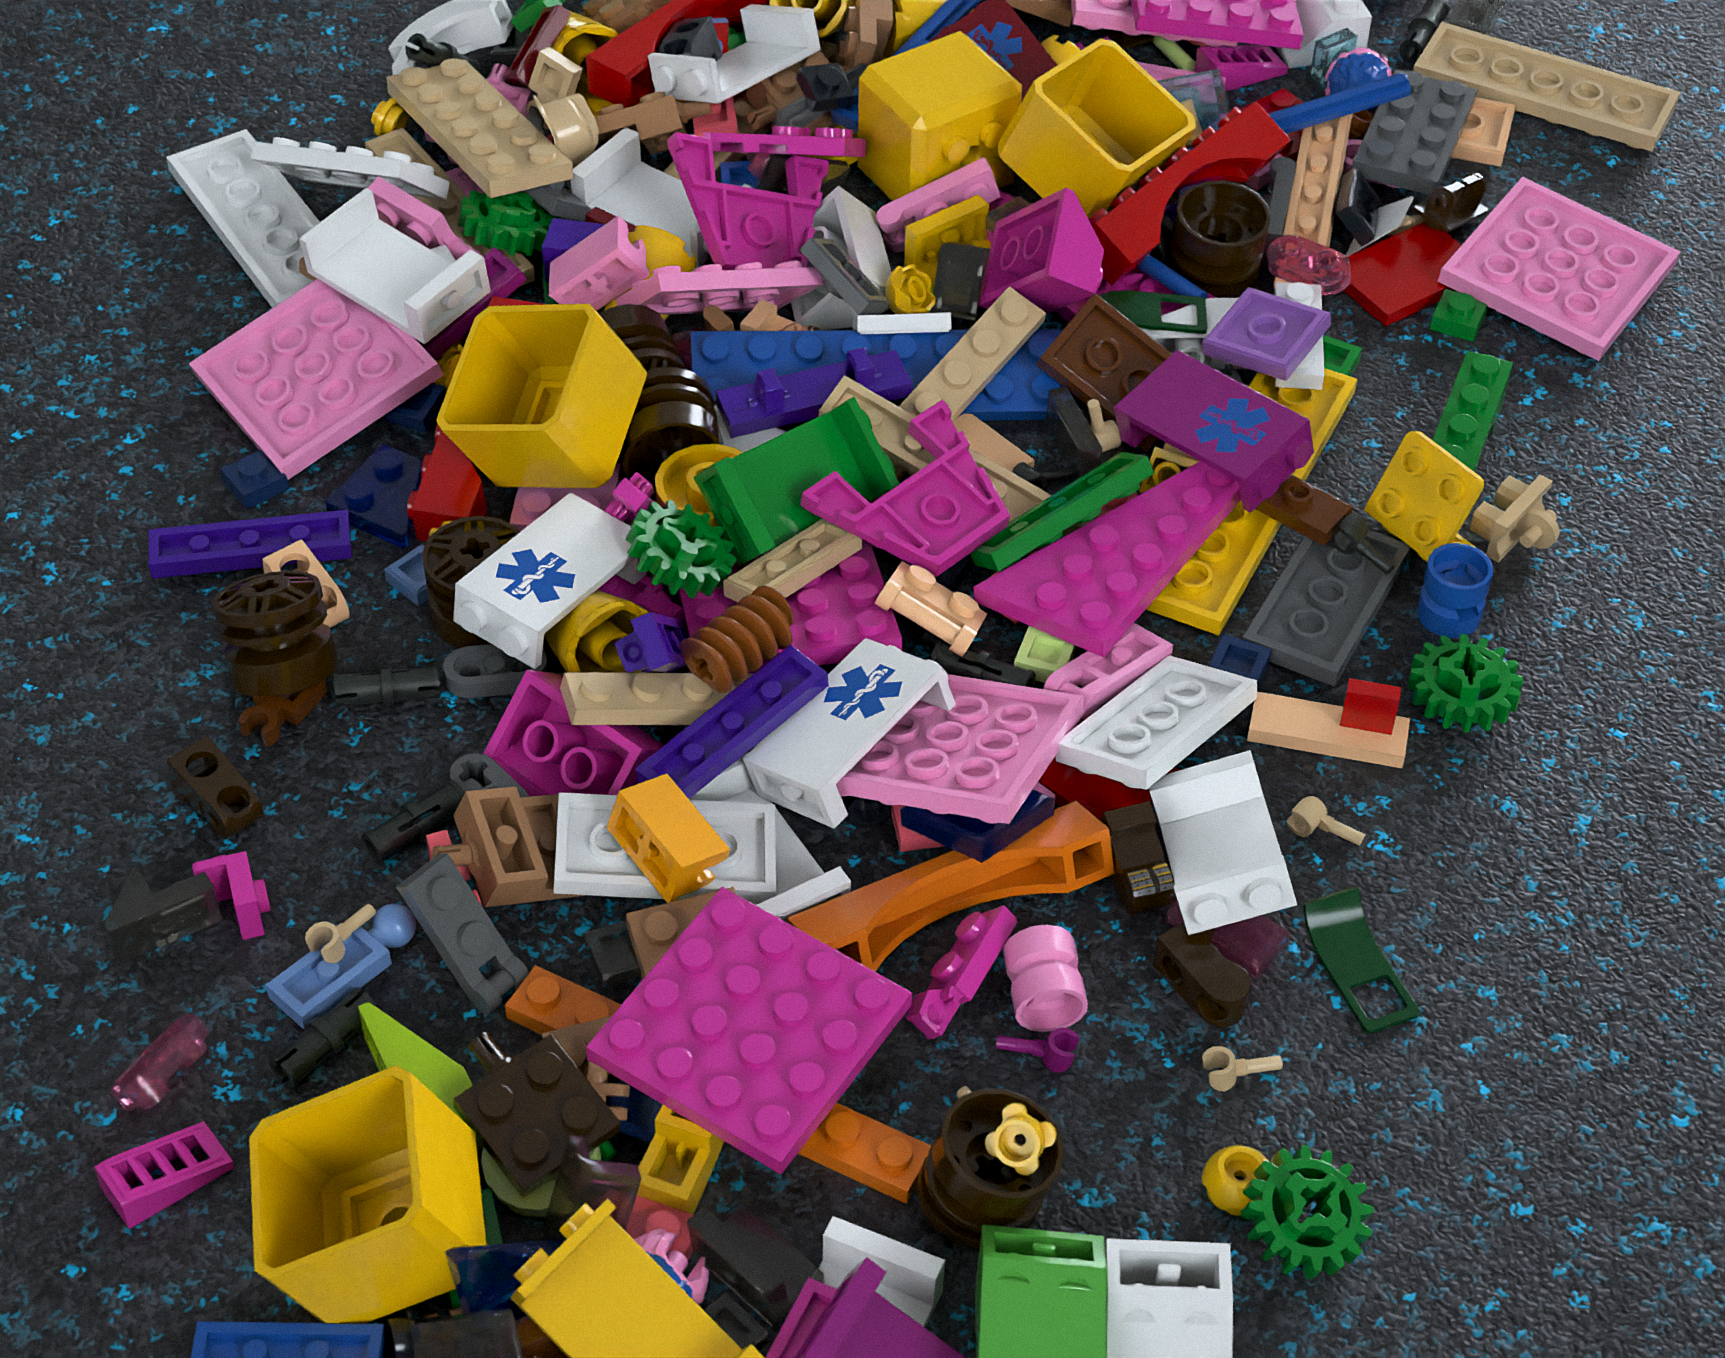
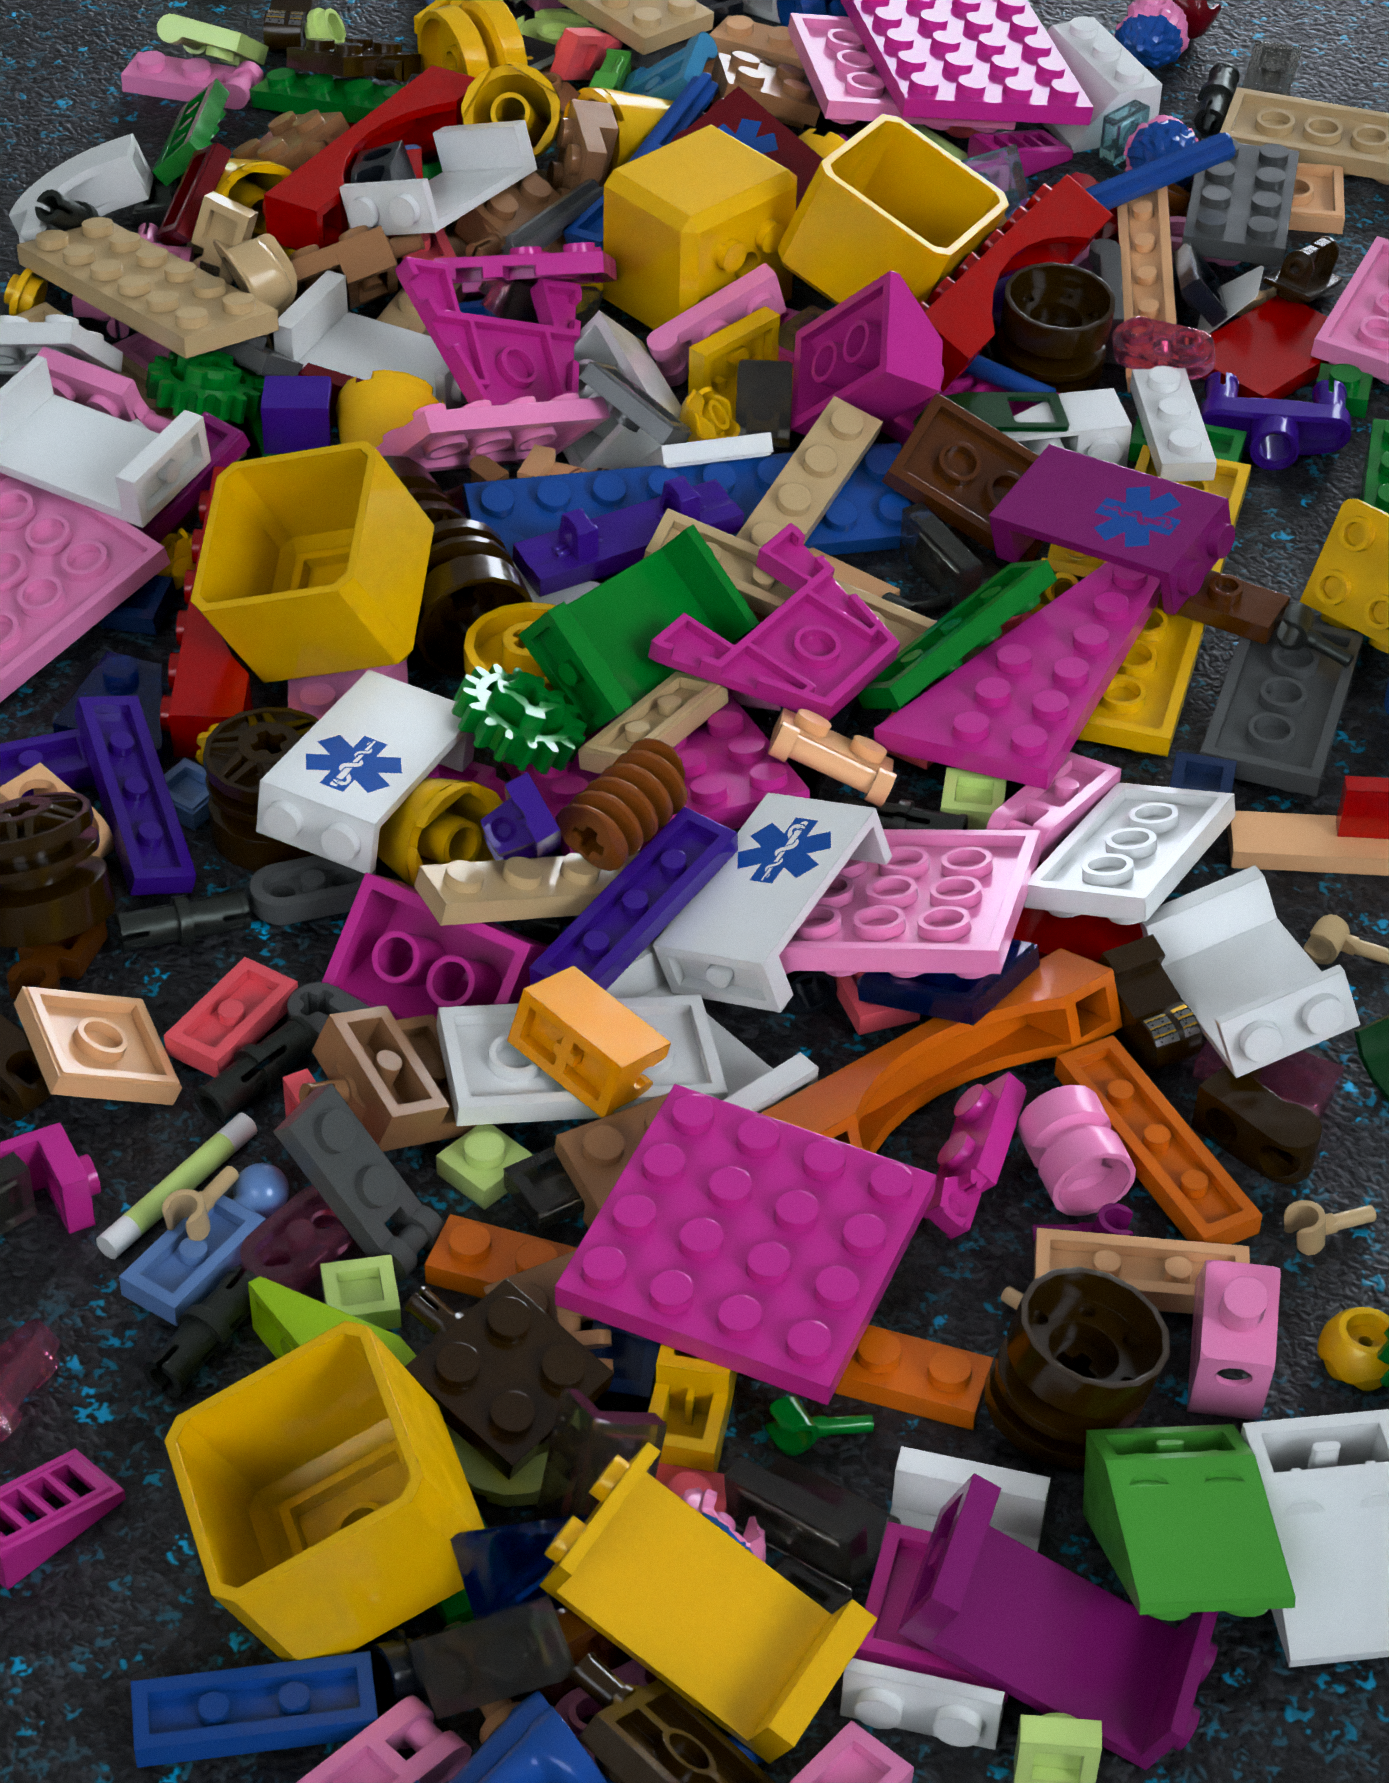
camera: 10 degrees left, 5 degrees down
(293, 787) = (97, 1046): none -> light nougat tile
(333, 910) = (185, 1176): none -> yellowish green bar
(372, 574) = (135, 795): none -> dark purple plate
(404, 774) = (230, 1016): none -> coral plate
(409, 972) = (291, 1243): none -> clear pink plate
(450, 1022) = (363, 1289): none -> yellowish green plate
(568, 921) = (477, 1163): none -> yellowish green plate
(598, 267) = (338, 413): bright pink hinge -> none
(630, 498) = (447, 668): dark pink hinge -> none
(763, 1187) = (798, 1431): none -> green hand
(825, 87) = (557, 205): black plate -> none
(1021, 1156) = (1118, 1342): yellow plate -> none
(1078, 1089) = (1156, 1266): none -> light nougat plate
(1105, 432) = (980, 545): tan hand -> none
(1117, 982) = (1162, 1146): none -> orange plate
(1124, 1162) = (1234, 1330): none -> bright pink torso
(1266, 333) = (1141, 421): medium lavender tile -> none
(1392, 345) = (1301, 425): none -> dark purple connector

